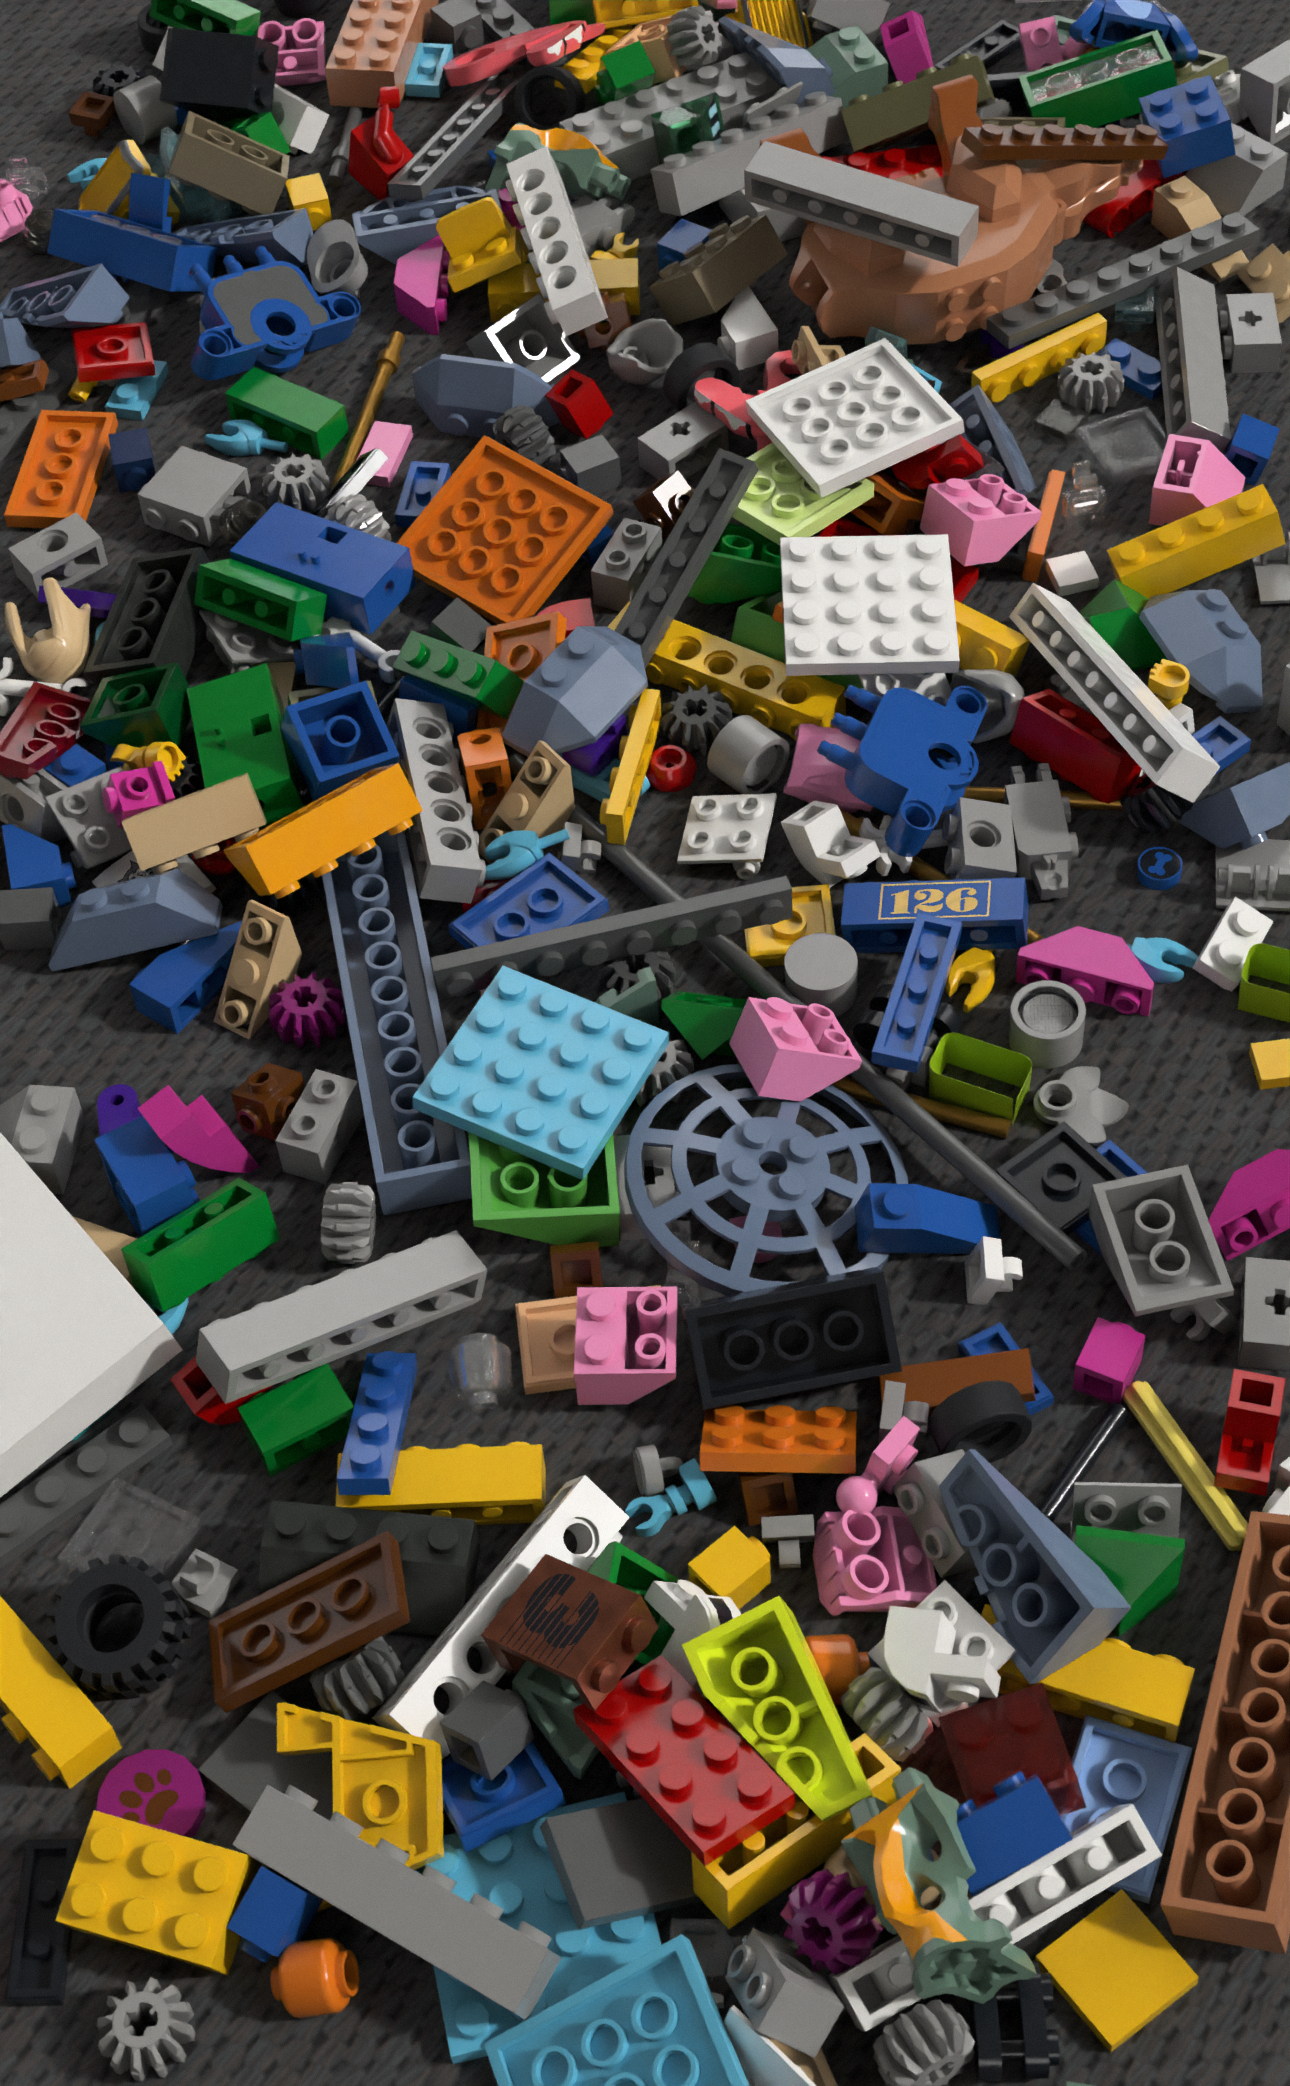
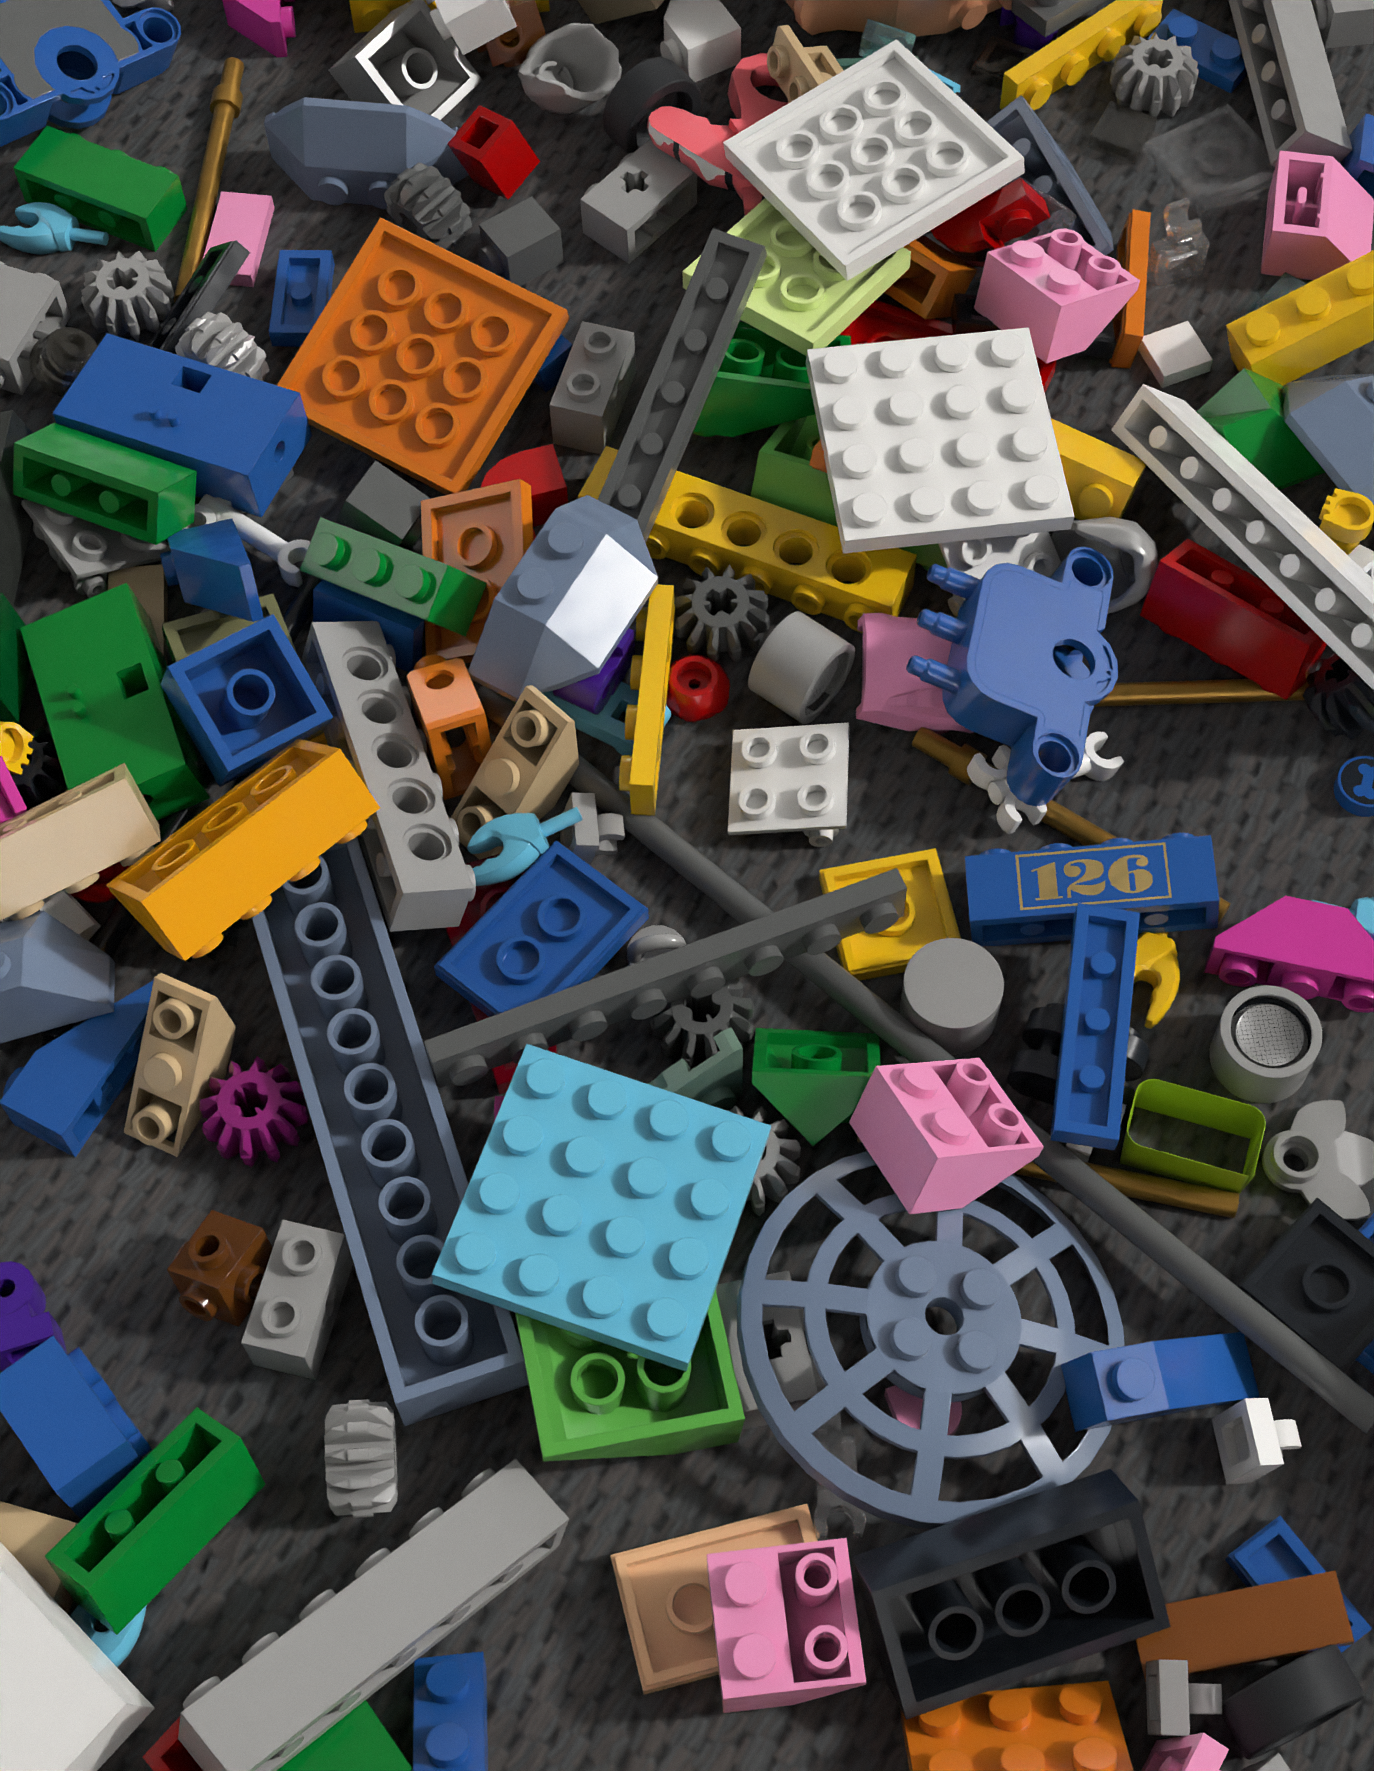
camera: 10 degrees left, 10 degrees up
(196, 1132) = (128, 1350): dark pink slope -> none
(480, 1371) = (579, 1676): clear head -> none
(575, 1267) = (689, 1493): reddish brown tile -> none
(665, 502) = (637, 295): reddish brown brick -> none
(825, 844) = (925, 794): white brick -> none
(979, 840) = (1135, 780): light grey brick -> none
(1041, 831) = (1204, 748): light grey hinge -> none

